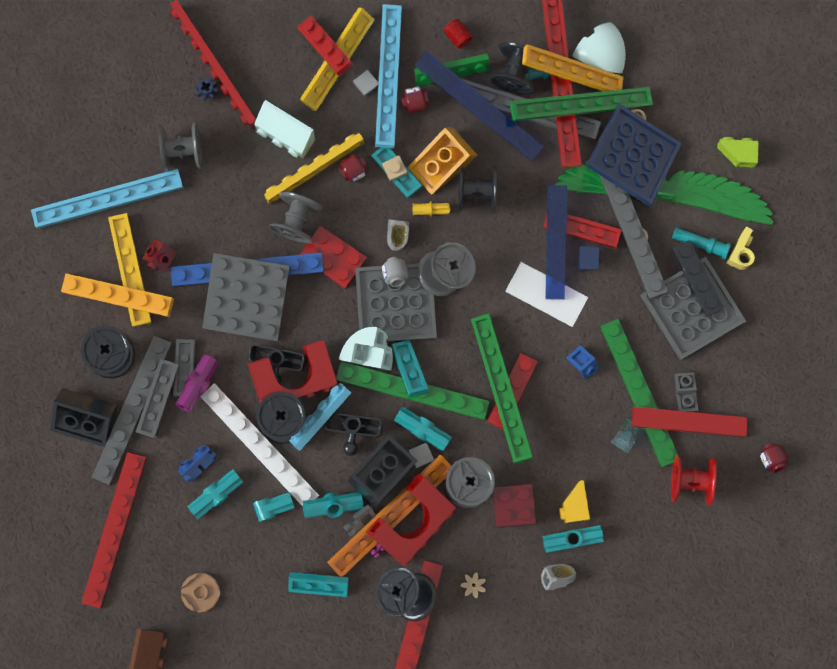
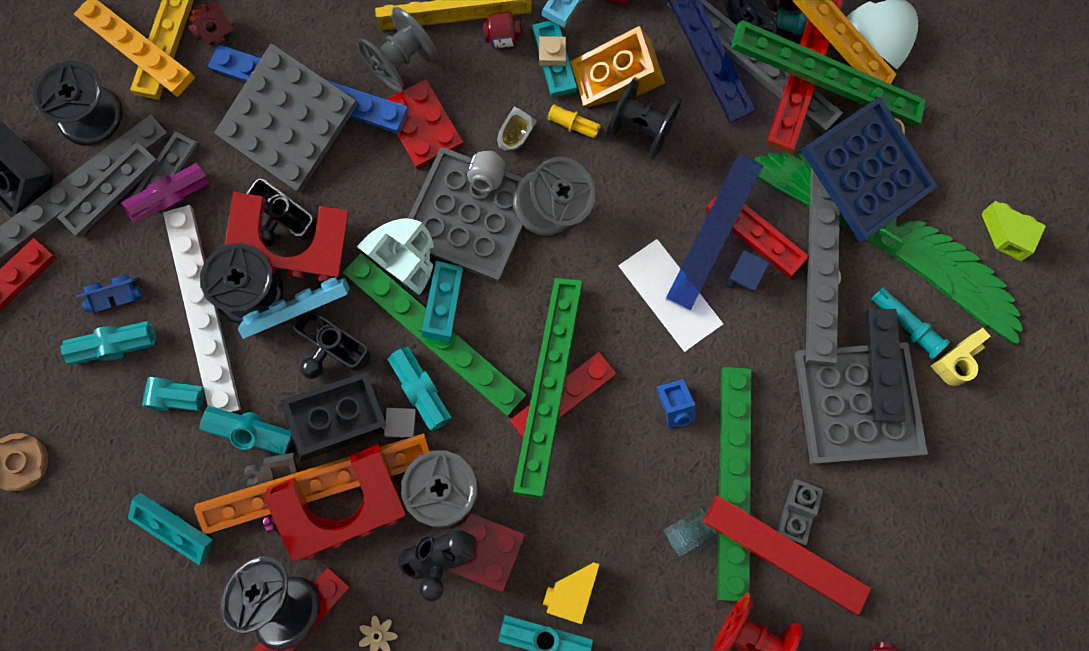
camera: 25 degrees right, 5 degrees down
(487, 522) = (434, 557): none -> black piece

